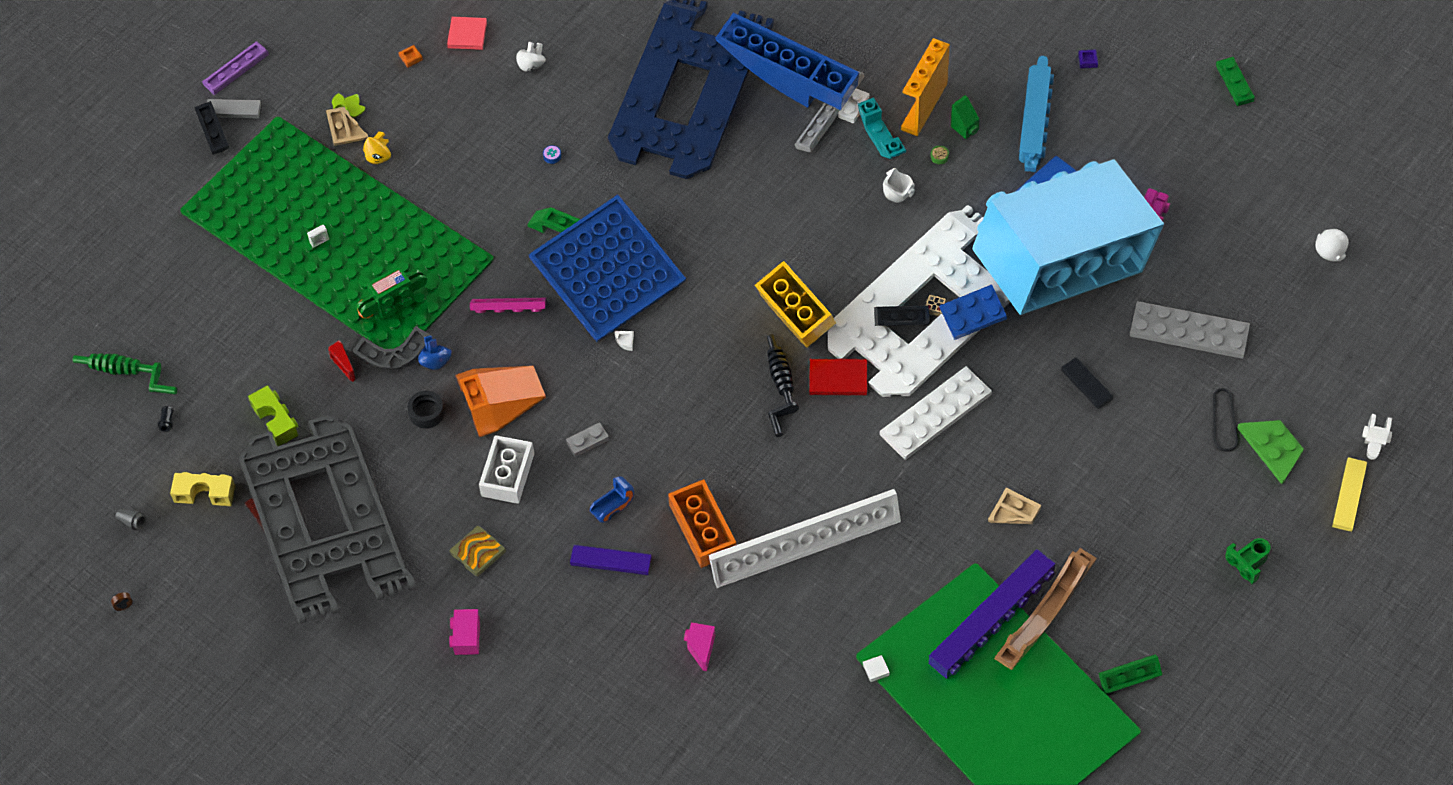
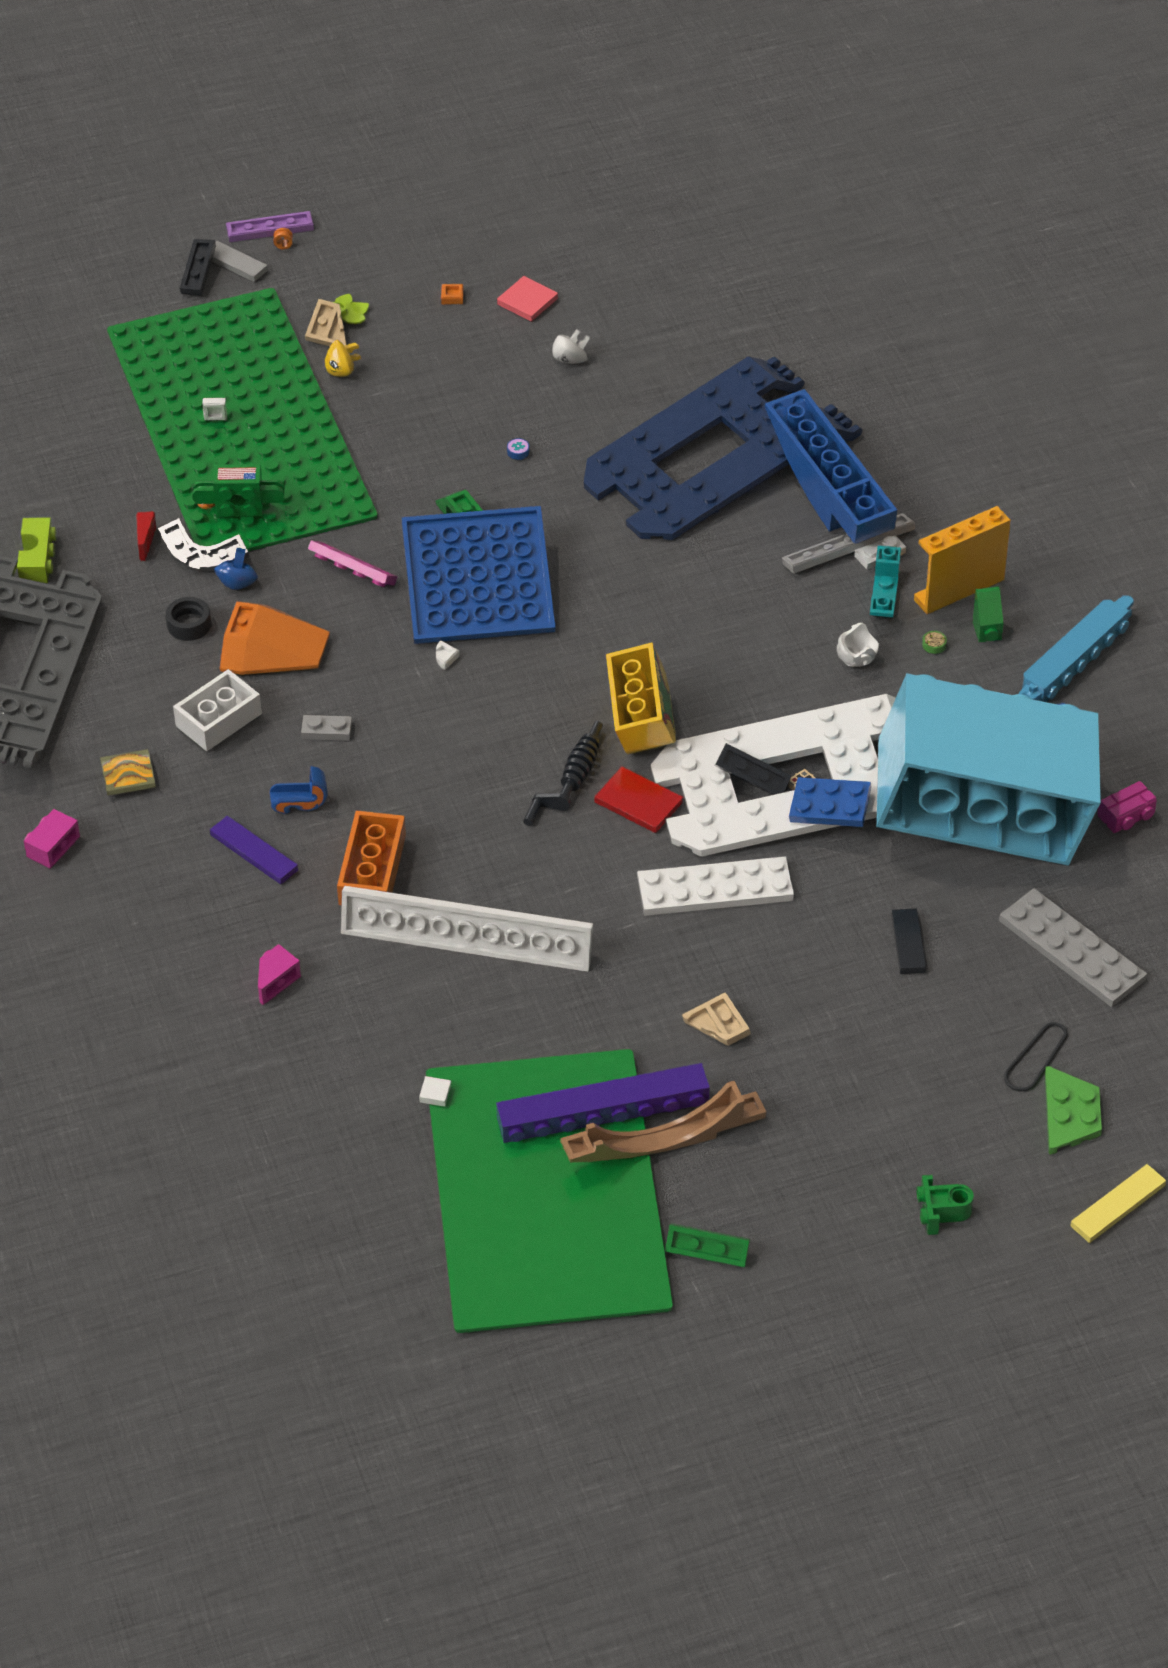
camera: 30 degrees right, 10 degrees down
(255, 73) = (279, 242): none -> orange bush

